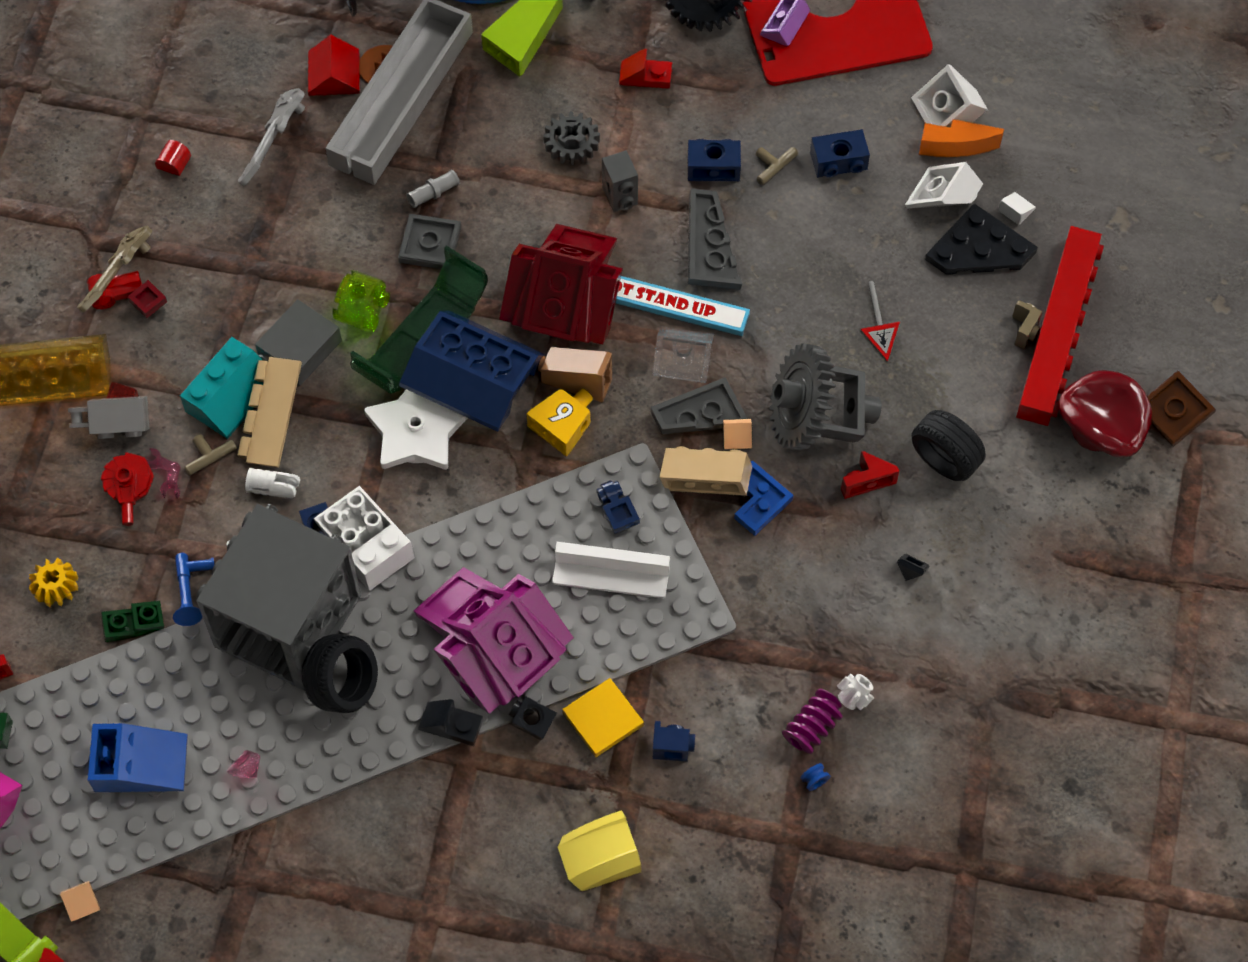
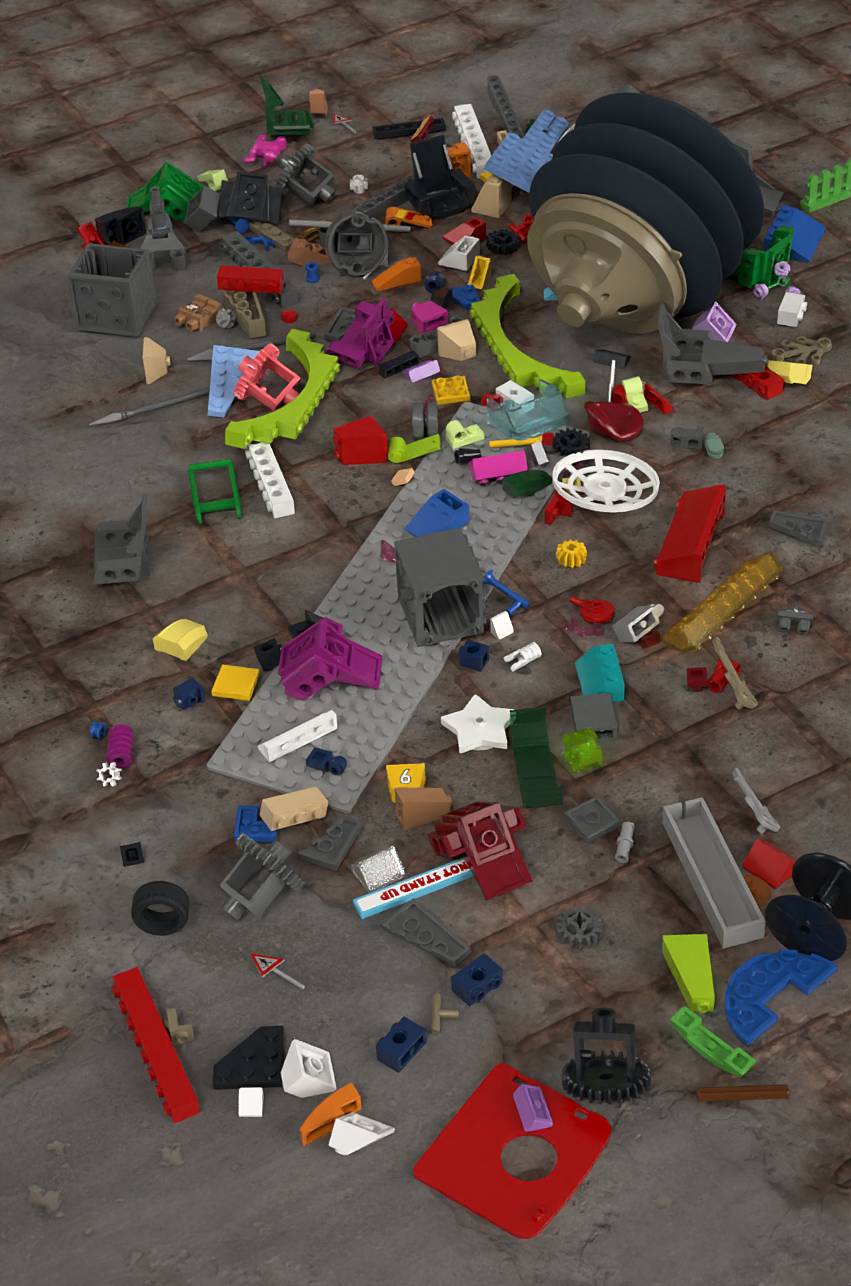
camera: 140 degrees right, 20 degrees down
(133, 622) = (517, 569): dark green slope -> none
(173, 157) = (788, 751): red brick -> none
(208, 455) = (572, 648): dark tan piece -> none
(274, 406) = (564, 678): tan windscreen -> none
(319, 668) = (378, 592): black tyre -> none
(374, 539) = (439, 656): white slope -> none
(469, 369) = (482, 764): dark blue slope -> none
(620, 181) = (514, 913): dark grey brick -> none
(645, 73) = (582, 1007): red slope -> none
(737, 434) = (299, 844): light nougat tile -> none
(874, 475) = (199, 877): red slope -> none
(1107, 413) = (77, 998): dark red piece -> none
(1178, 408) = (36, 1047): reddish brown plate -> none

